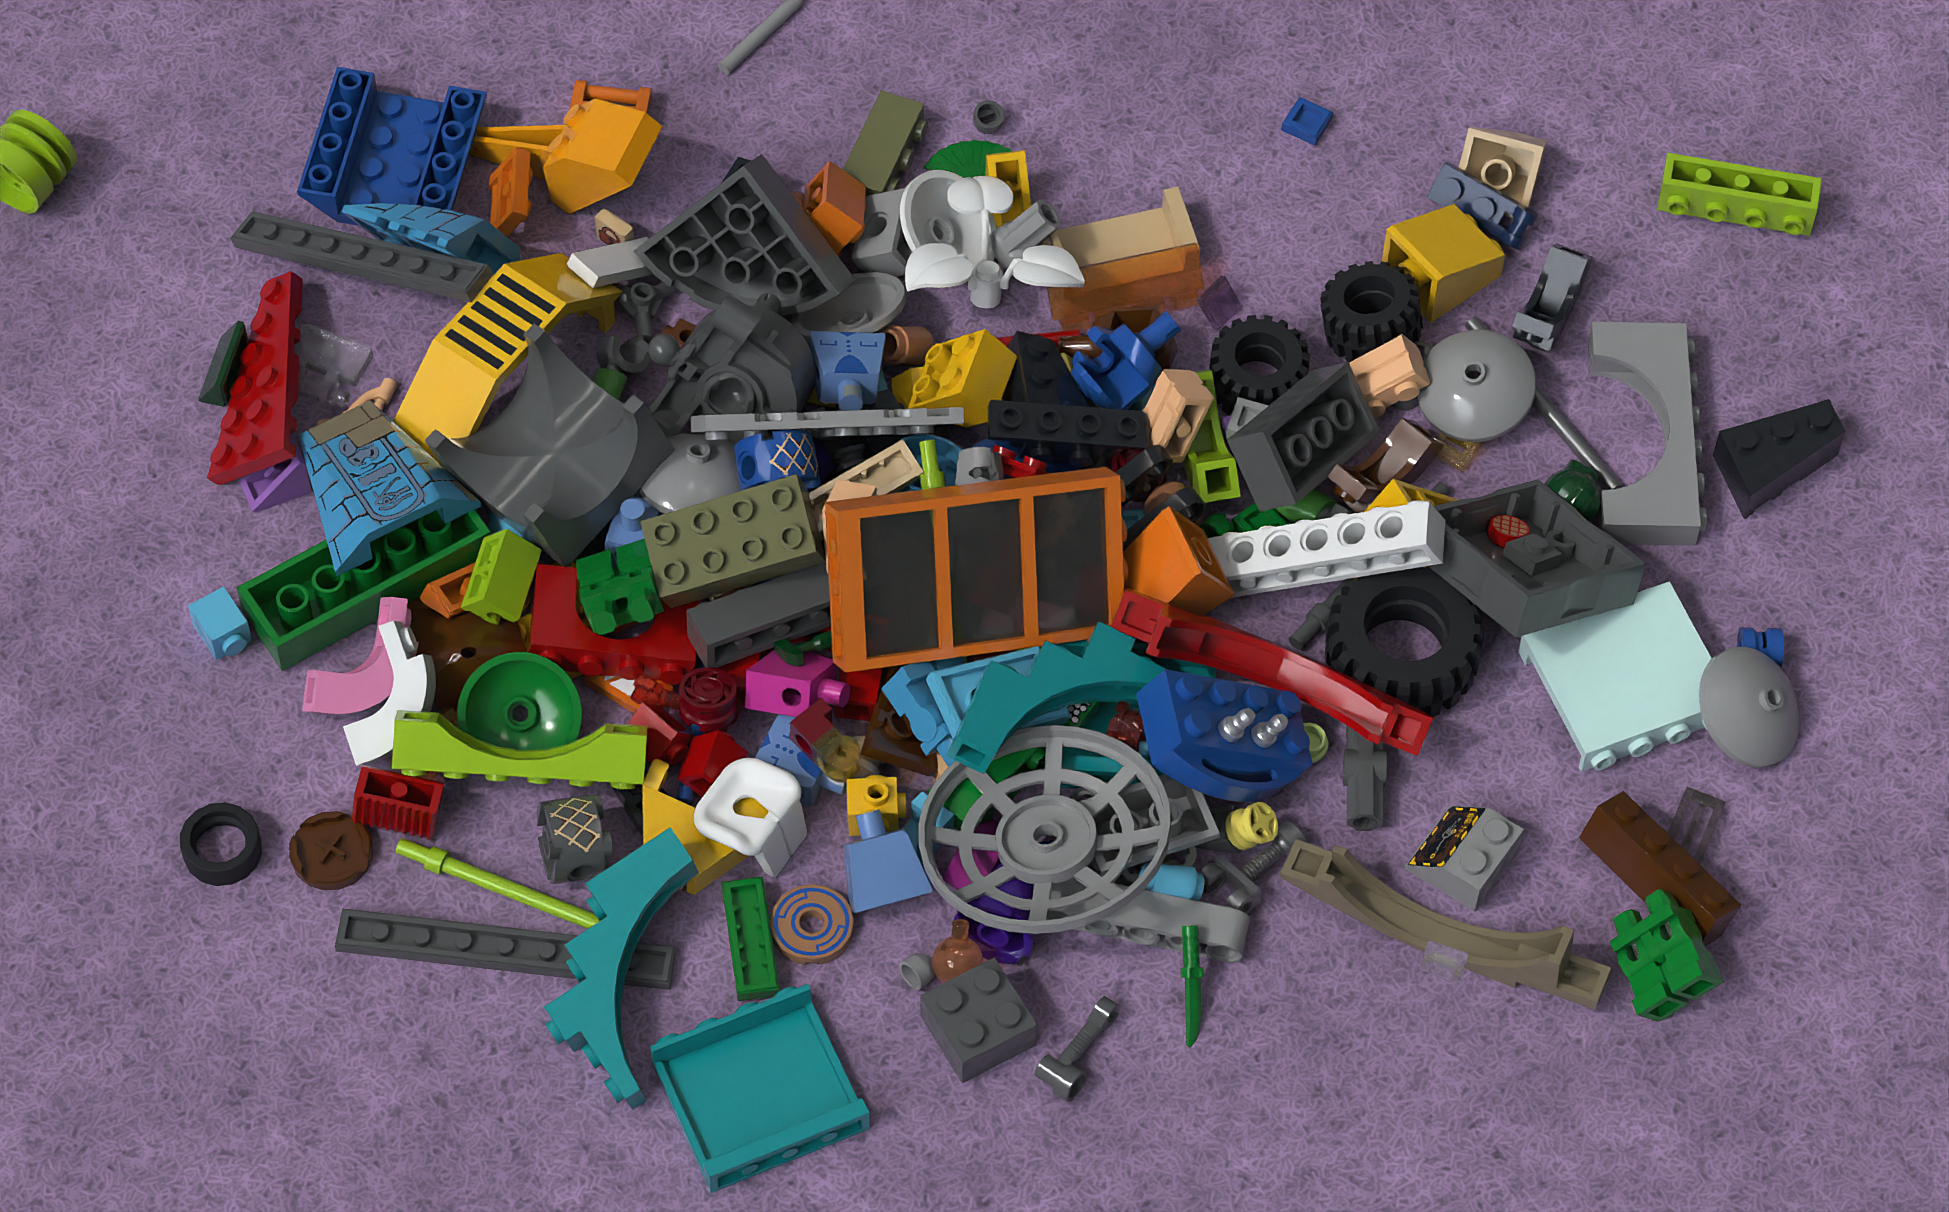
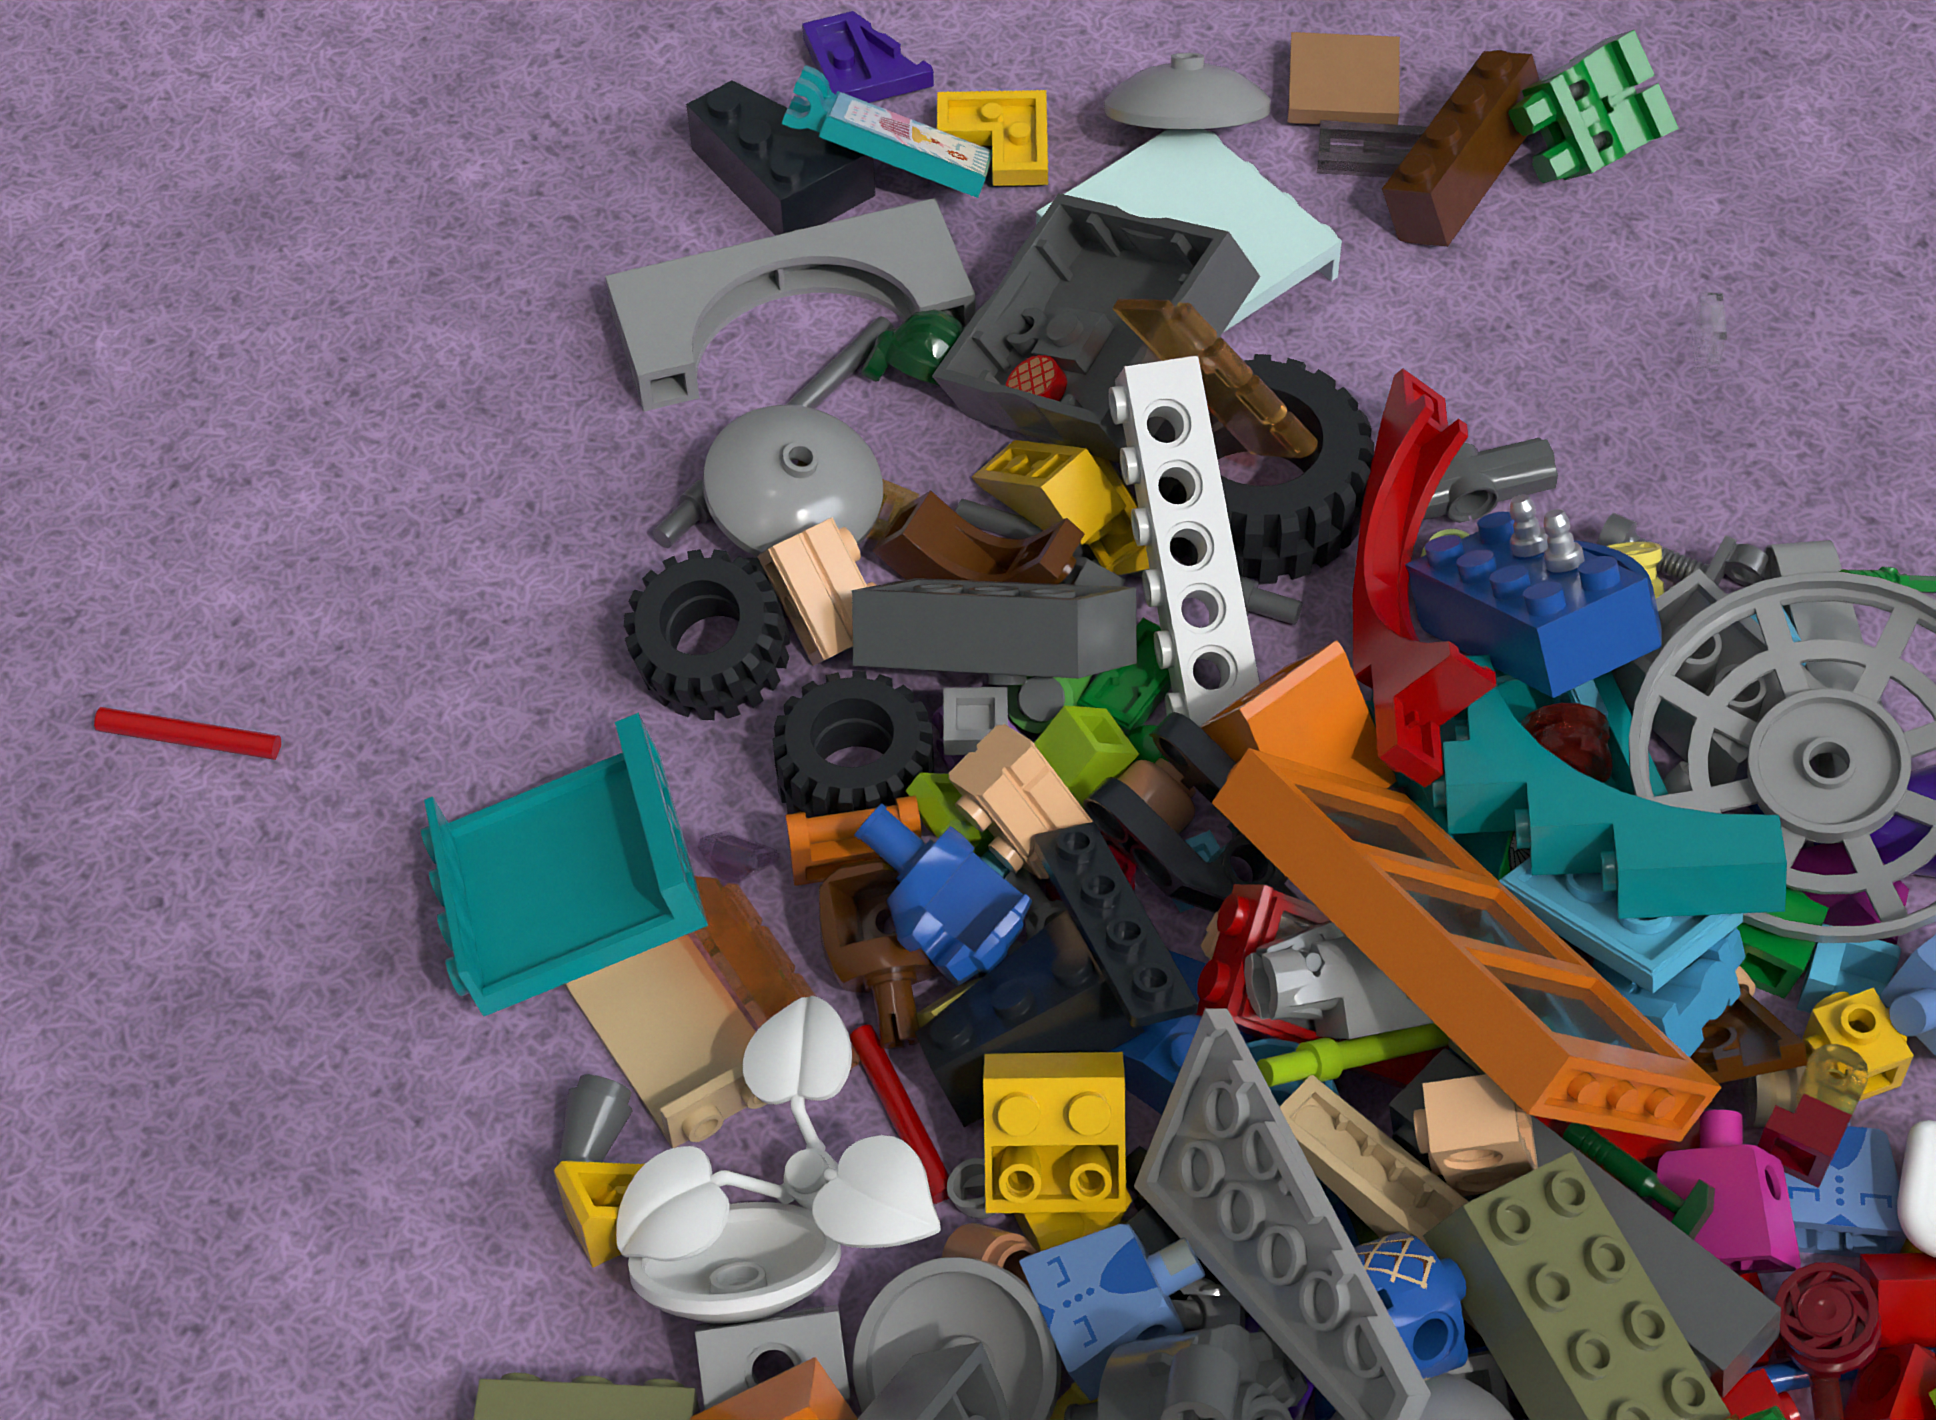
camera: 105 degrees left, 5 degrees down
(964, 158) = (555, 1301): green hand -> none
(987, 110) = (469, 1280): dark grey hinge -> none
(1024, 232) = (711, 1124): light grey piece -> none
(1065, 195) = (593, 1118): none -> dark grey cone
(1197, 337) = (828, 841): none -> orange plate
(1219, 196) = (563, 877): none -> teal panel
(1307, 121) = (338, 832): blue tile -> none
(1404, 62) = (187, 733): none -> red bar
(1433, 575) = (1231, 391): none -> clear orange windscreen
(1444, 257) = (572, 577): yellow slope -> none
(1466, 853) = (1535, 345): light grey slope -> none
(1482, 203) = (451, 562): dark blue plate -> none
(1504, 161) = (384, 544): tan slope -> none
(1531, 958) = (1664, 423): dark tan slope -> none
(1553, 297) = (607, 448): arch -> none
(1739, 194) = (355, 273): lime brick -> none
(1759, 511) = (886, 135): none -> teal tile
(1762, 829) = (1343, 78): none -> medium nougat tile
(1768, 642) = (1080, 125): blue wheel -> none
(1778, 607) = (1009, 123): none -> yellow plate
(1870, 534) = (861, 59): none -> dark purple wing

